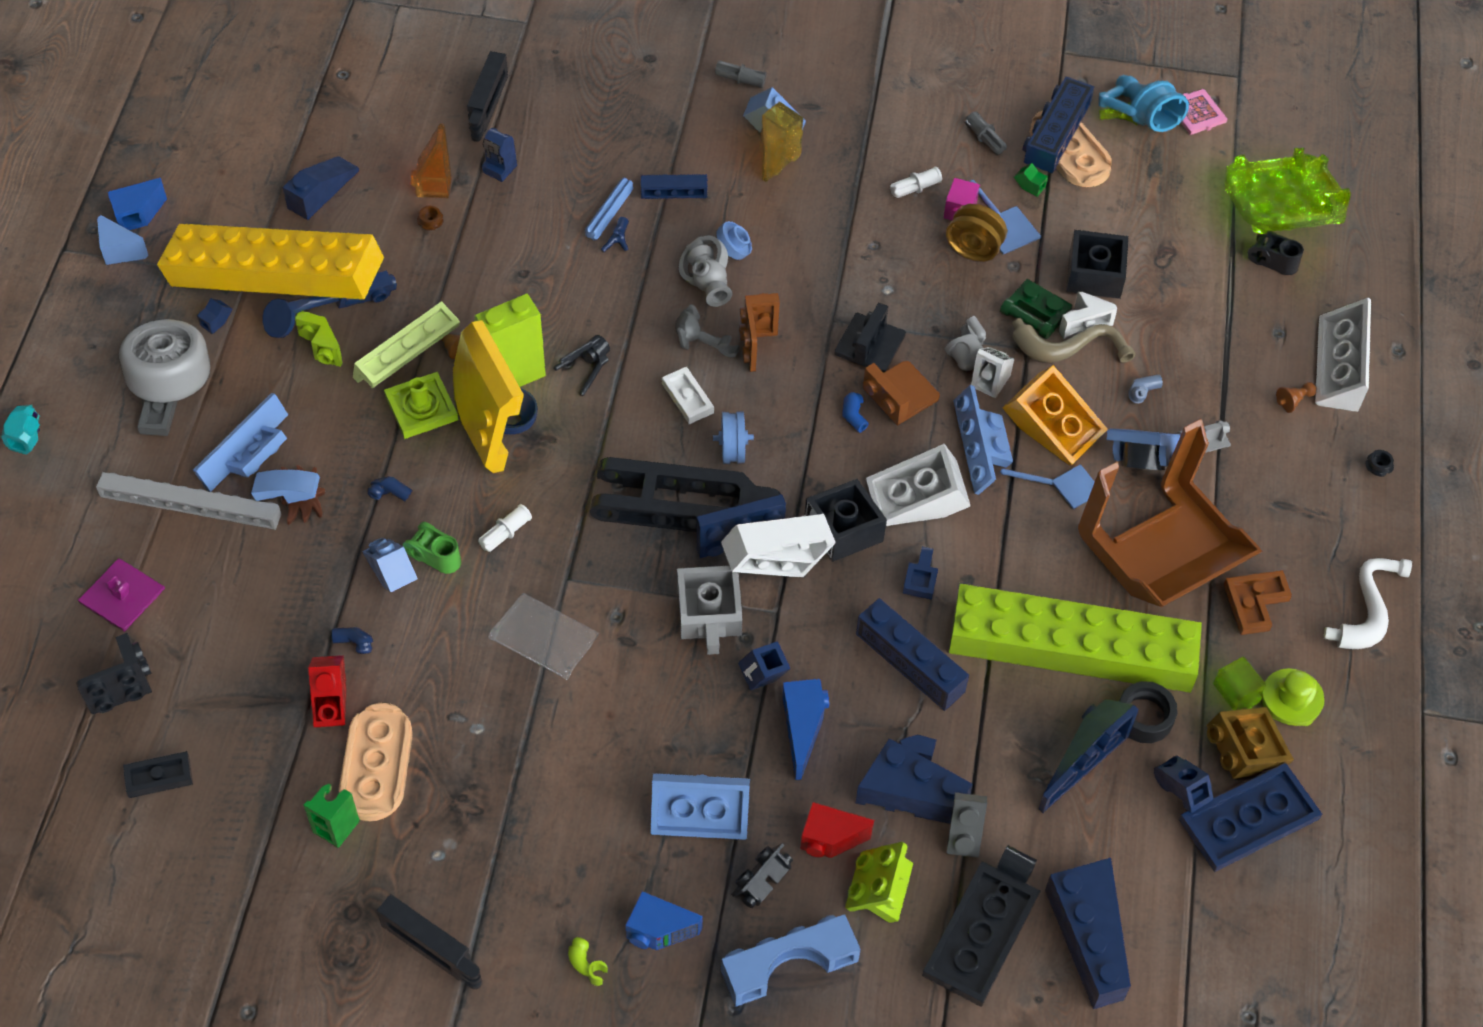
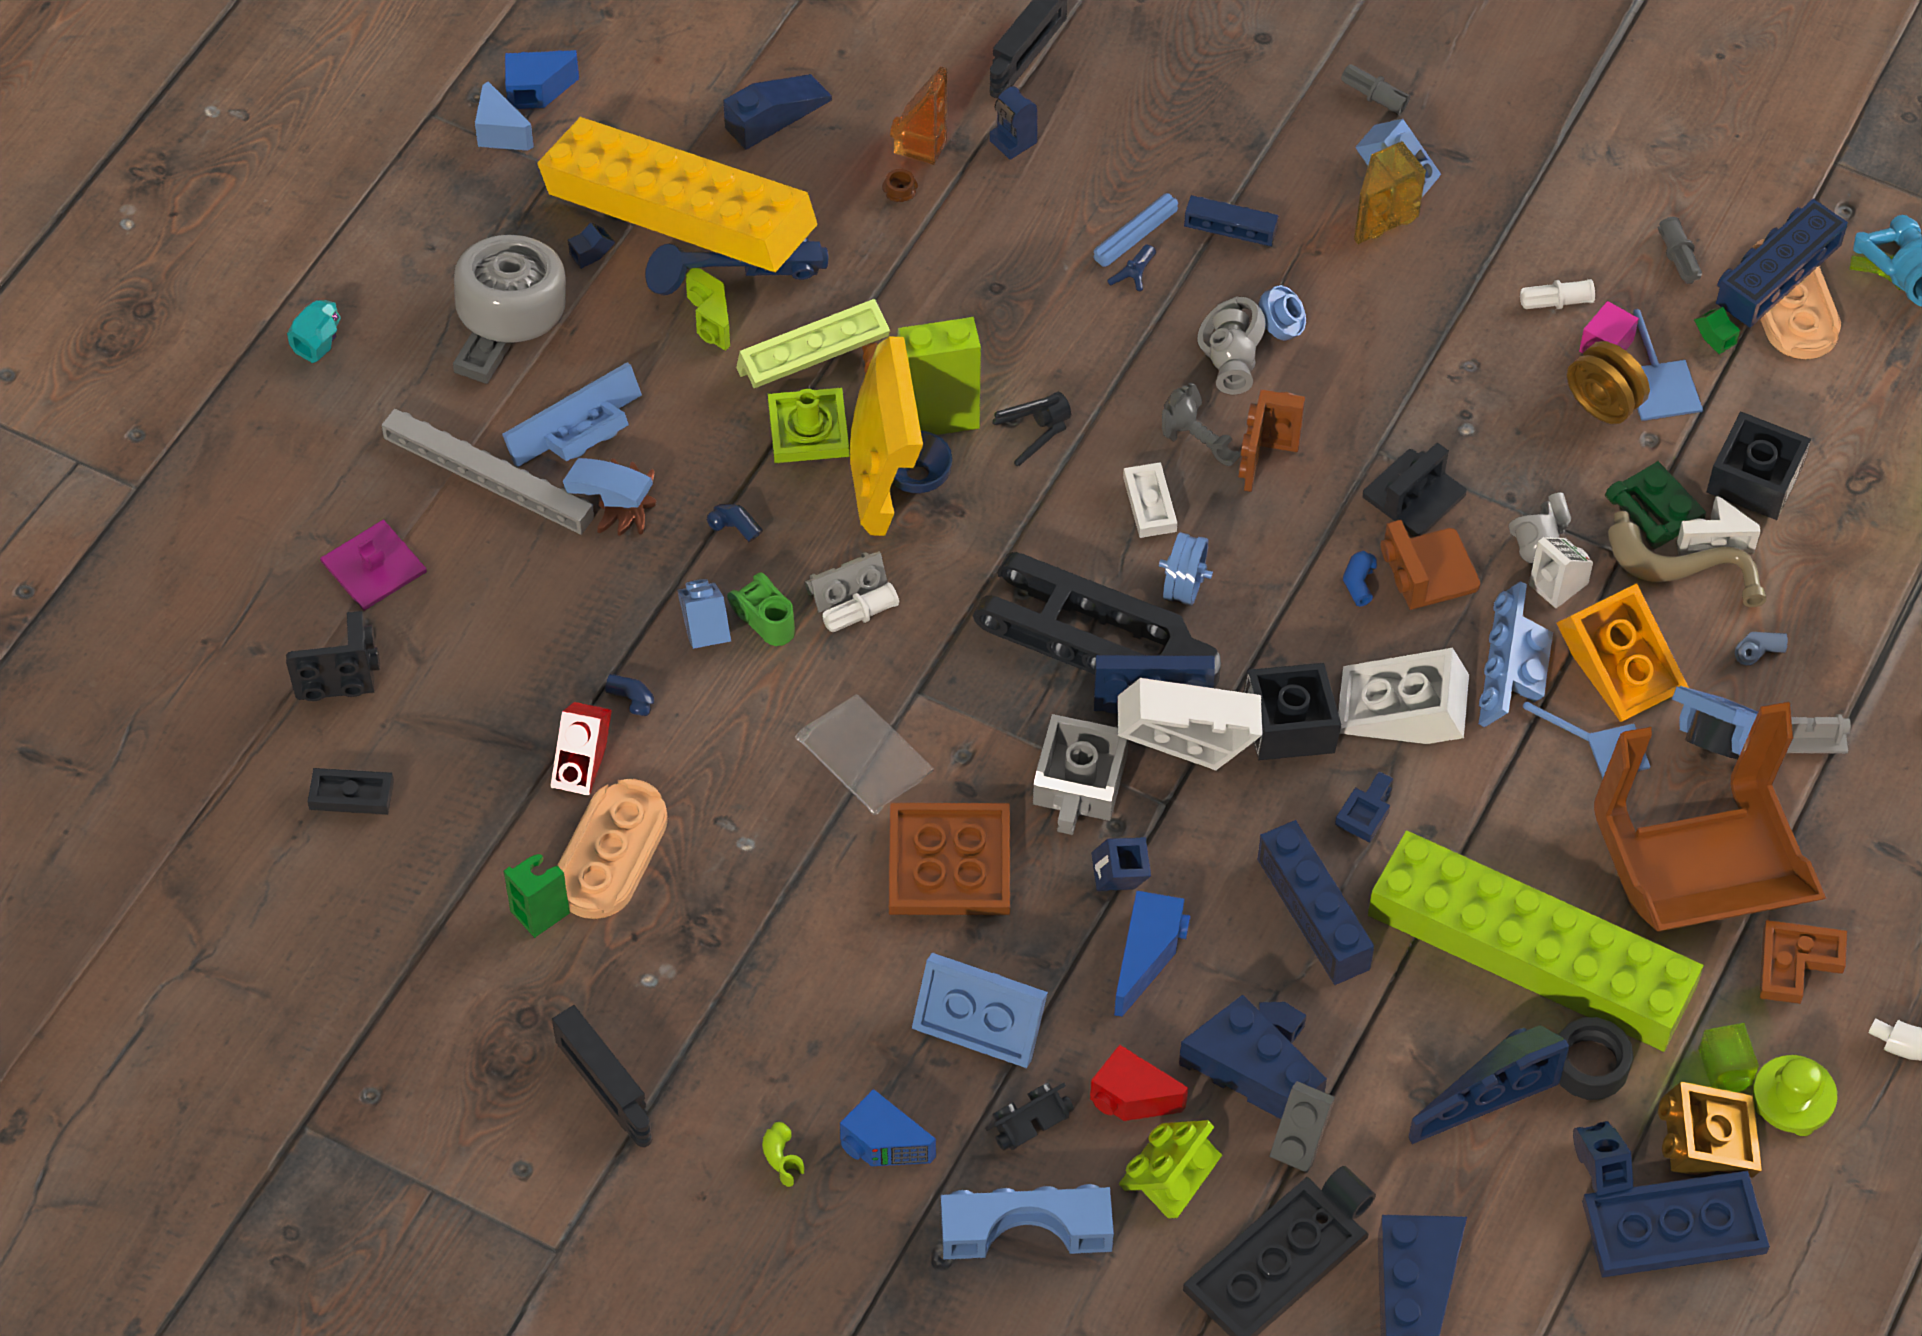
camera: 20 degrees right, 0 degrees up
(491, 507) = (853, 577): none -> light grey hinge
(635, 697) = (949, 859): none -> dark orange plate

